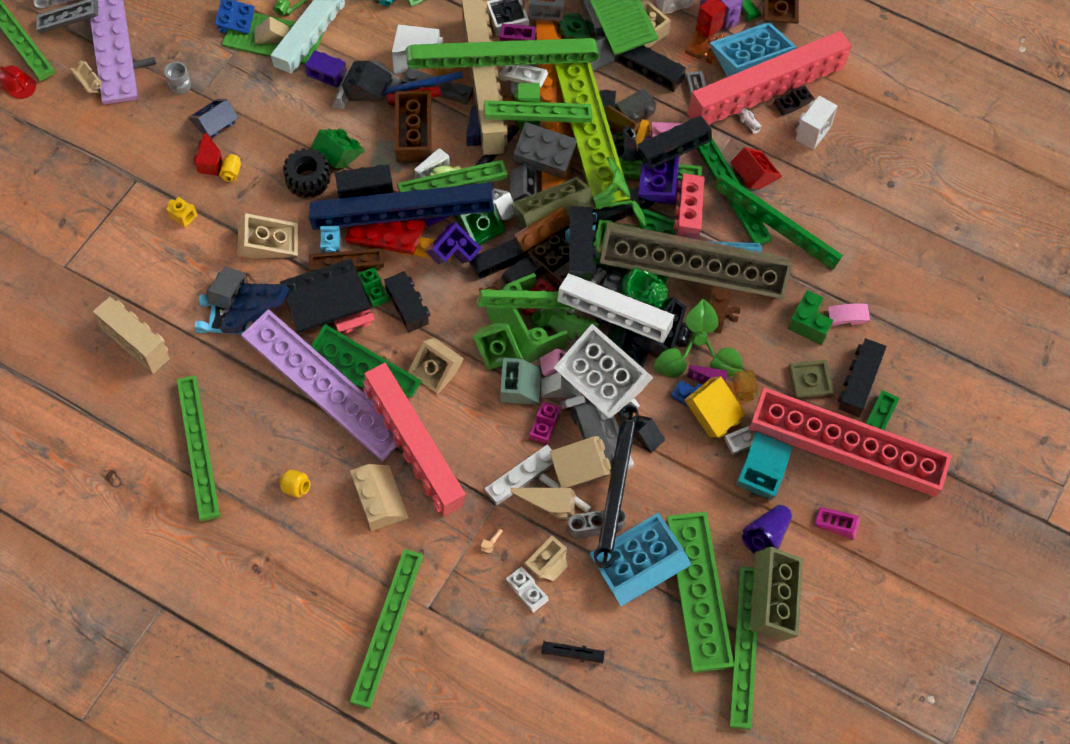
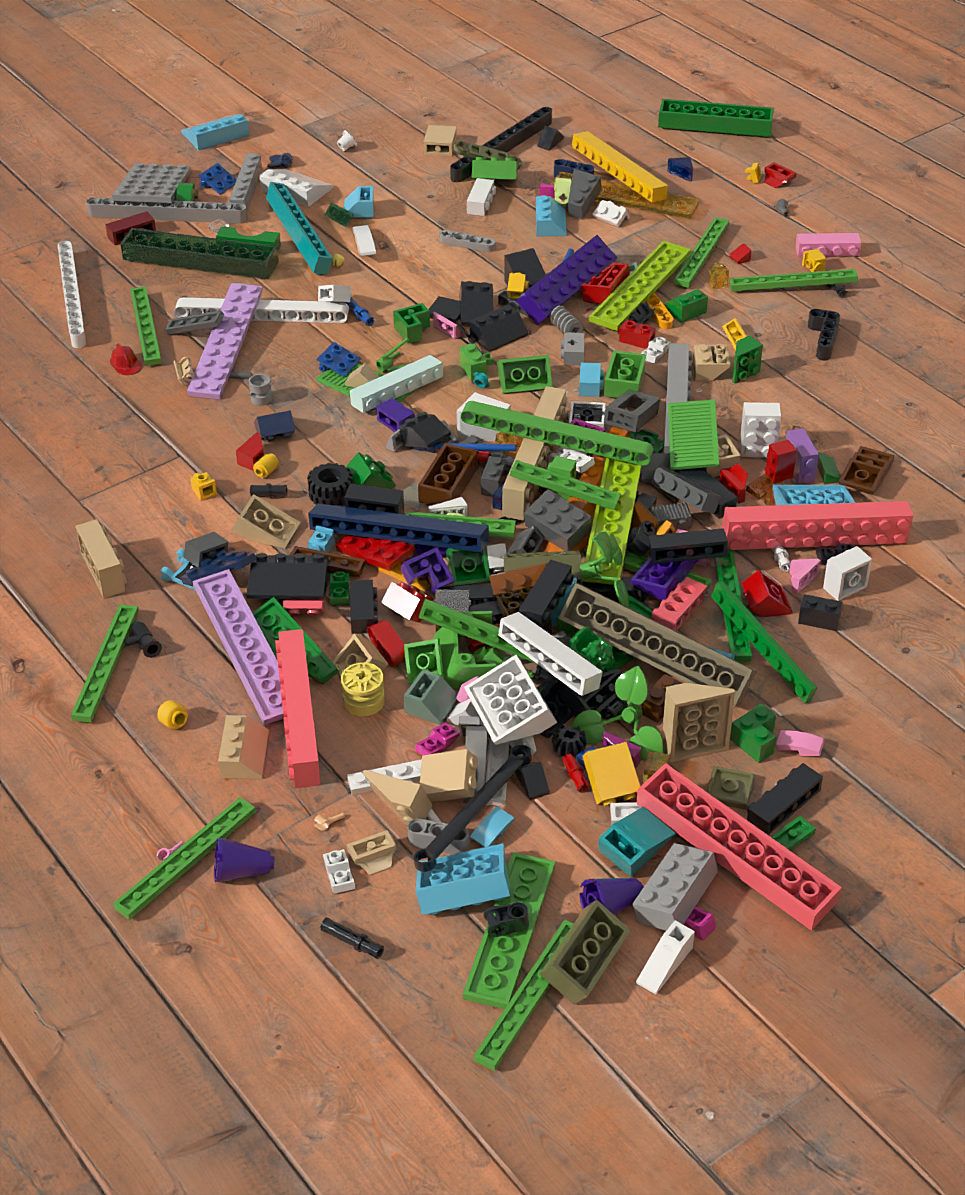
camera: 25 degrees right, 20 degrees down
(220, 407) = (143, 636): none -> black piece
(248, 196) = (268, 490): none -> black pin
(369, 626) = (164, 852): none -> bright pink hand
(439, 616) = (240, 860): none -> dark purple cone
(447, 282) = (406, 600): none -> slope
(450, 334) = (387, 642): none -> red beam
(454, 112) = (493, 475): none -> dark grey brick
(456, 404) = (362, 689): none -> light yellow wheel
(489, 271) = (453, 599): none -> clear piece
(637, 73) = (686, 489): none -> dark grey brick
(637, 496) = (492, 827): none -> medium azure slope
(661, 384) = (569, 741): none -> black gear
(674, 48) = (735, 481): none -> red slope
(679, 413) = (576, 773): none -> red axle
(695, 590) = (508, 919): none -> black piece
(766, 332) = (696, 720): none -> tan slope
(774, 129) = (803, 572): none -> bright pink slope
(807, 168) = (820, 612): none -> black slope
(817, 501) = (675, 887): none -> light grey brick
(839, 571) = (666, 957): none -> white slope

